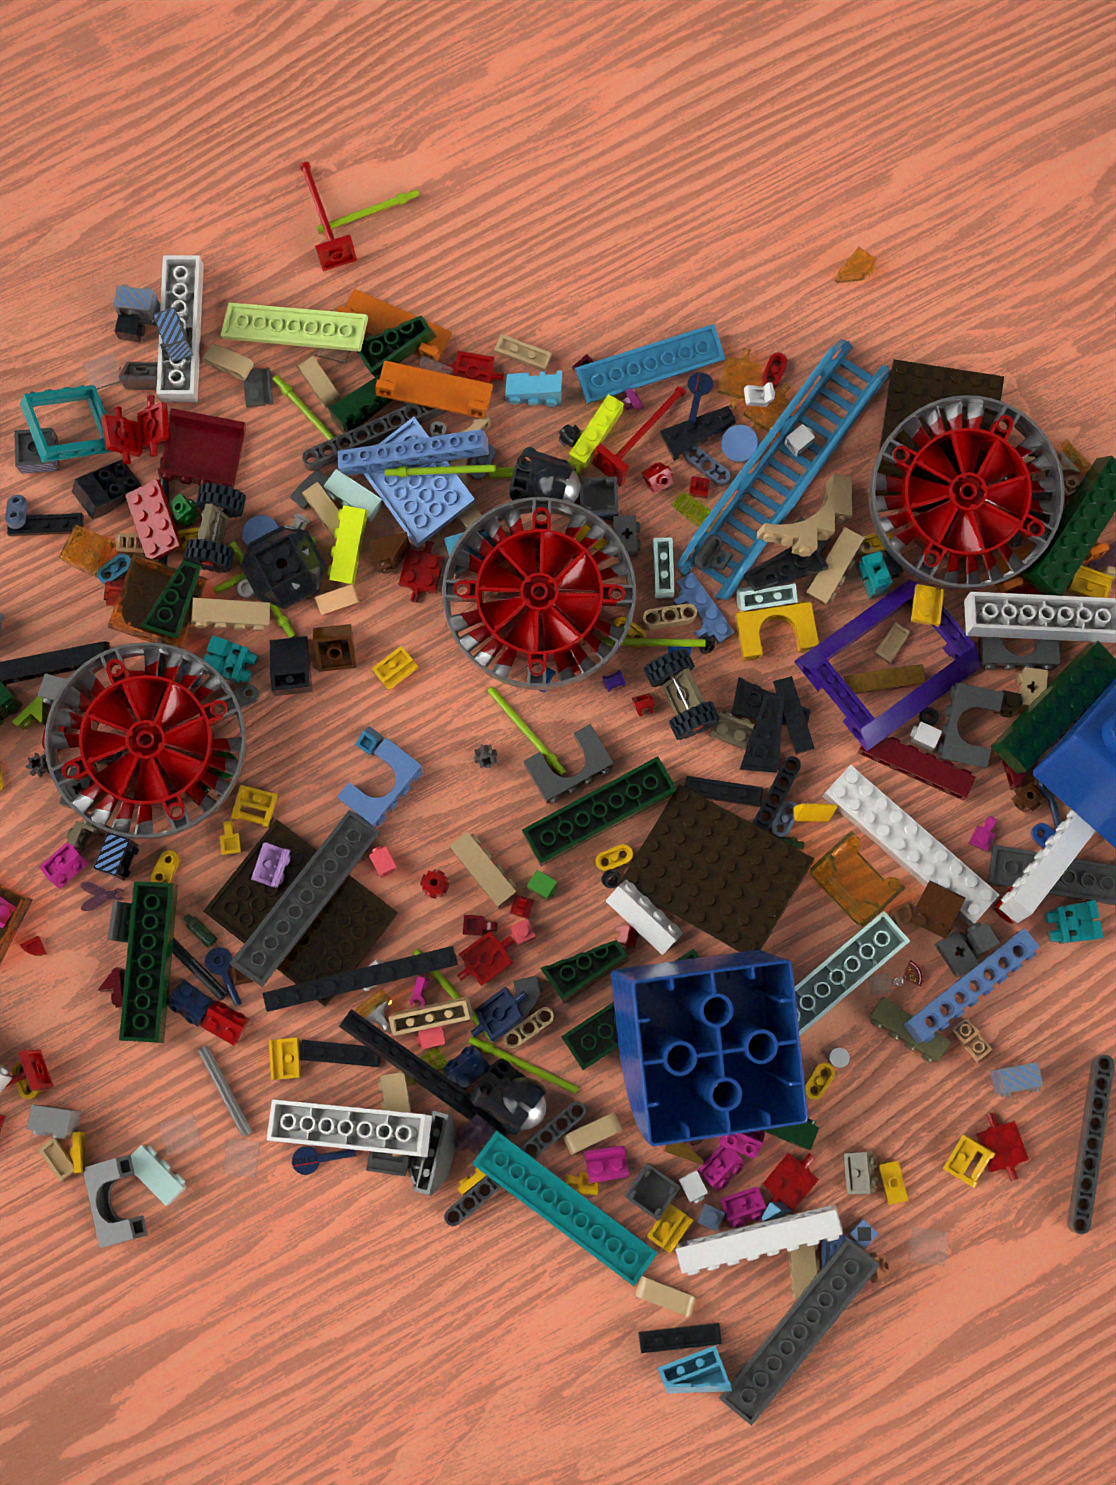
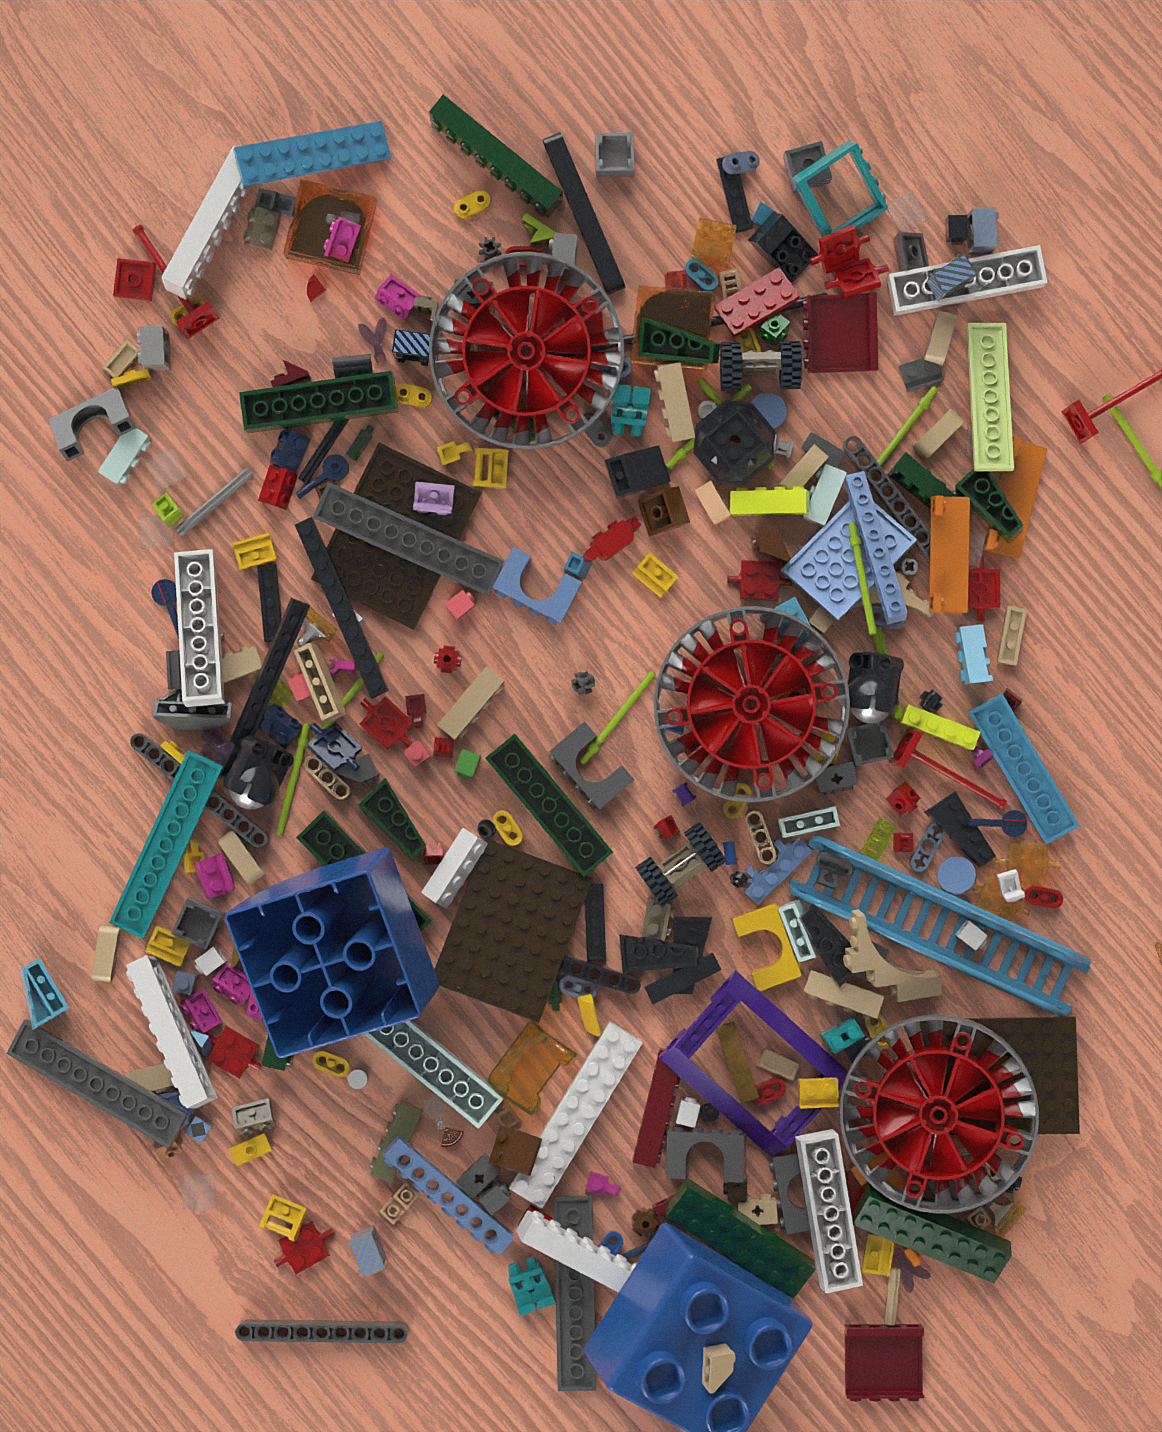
camera: 75 degrees right, 10 degrees up
(70, 502) = (762, 214): none -> dark azure slope
(221, 1139) = (168, 510): none -> lime slope
(352, 700) = (613, 540): none -> red hinge
(656, 642) = (730, 829): lime bar -> none
(679, 1337) = (72, 973): black tile -> none
(918, 657) = (768, 1093): none -> red plate

